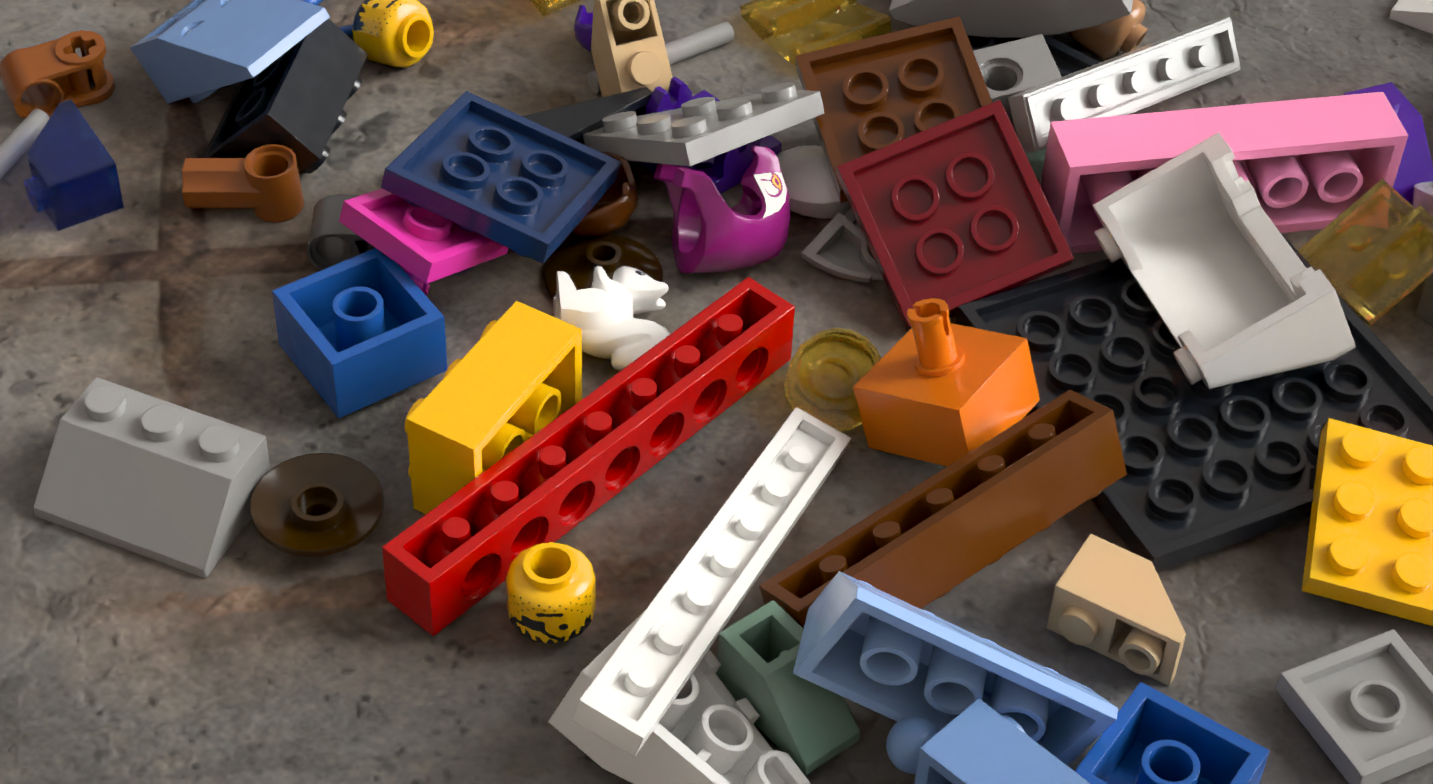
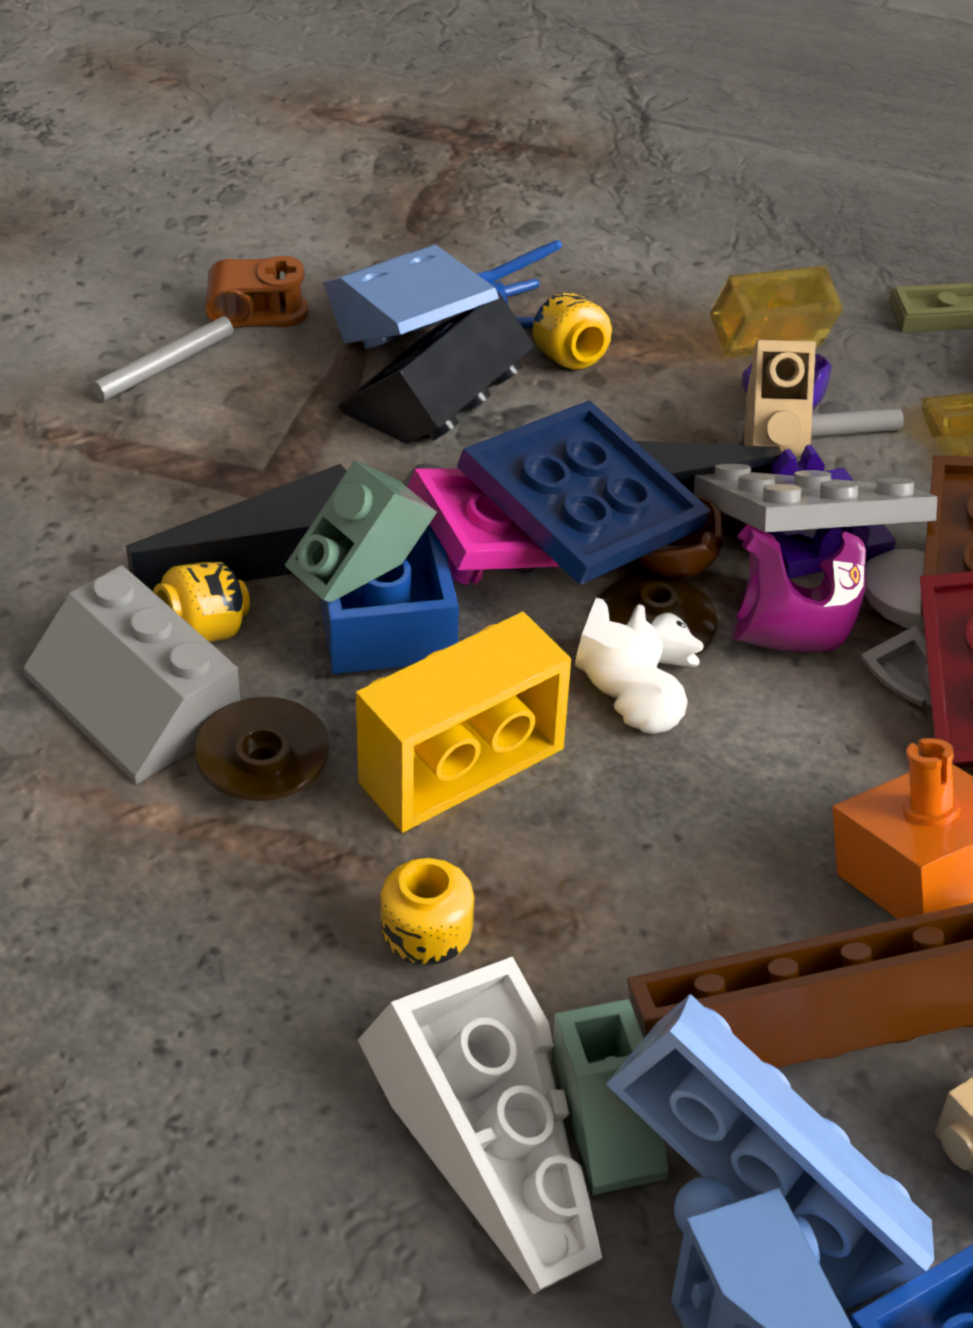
camera: 25 degrees right, 0 degrees up
(71, 171) = (218, 377): clear blue slope -> none
(186, 379) = (206, 598): none -> yellow head
(204, 310) = (247, 536): none -> black slope
(261, 181) = (377, 432): dark orange piece -> none
(324, 277) = (359, 533): none -> sand green slope
(586, 455) = (541, 783): red brick -> none
(709, 585) = (574, 959): white plate -> none
(824, 376) = (816, 781): clear yellow hat -> none

